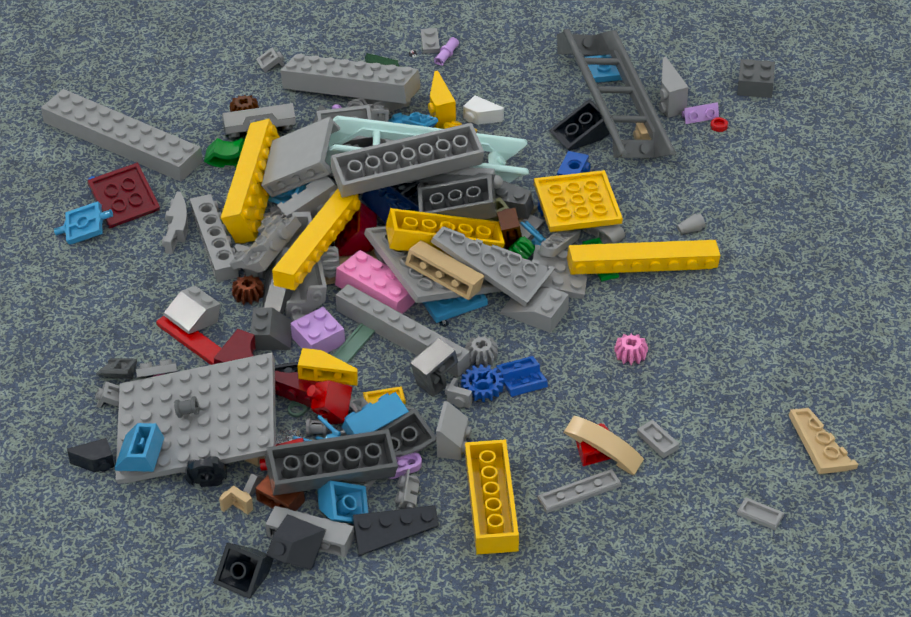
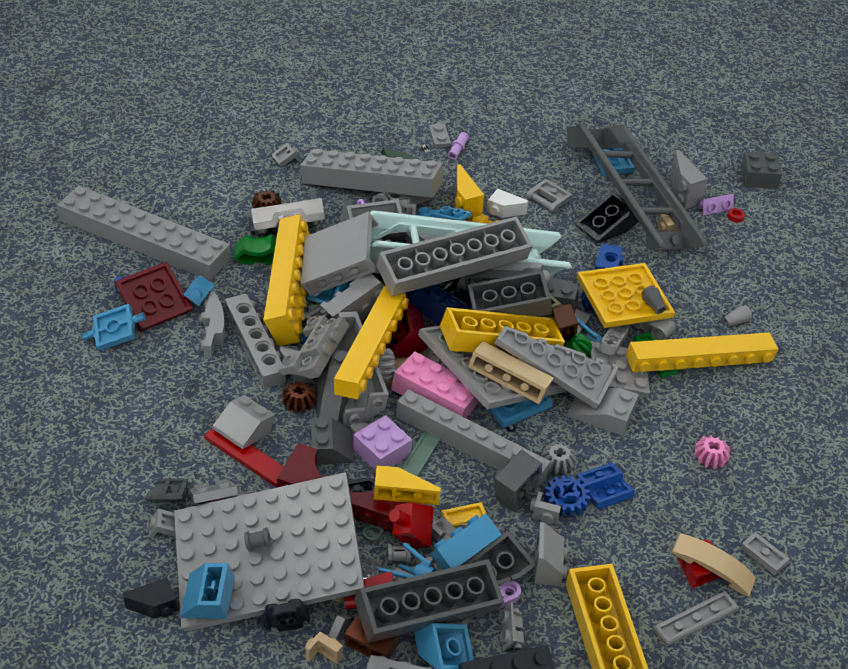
camera: 10 degrees left, 0 degrees up
(166, 190) = (199, 290): none -> dark azure brick
(532, 99) = (551, 192): none -> light grey plate
(601, 205) = (653, 298): none -> dark grey cone

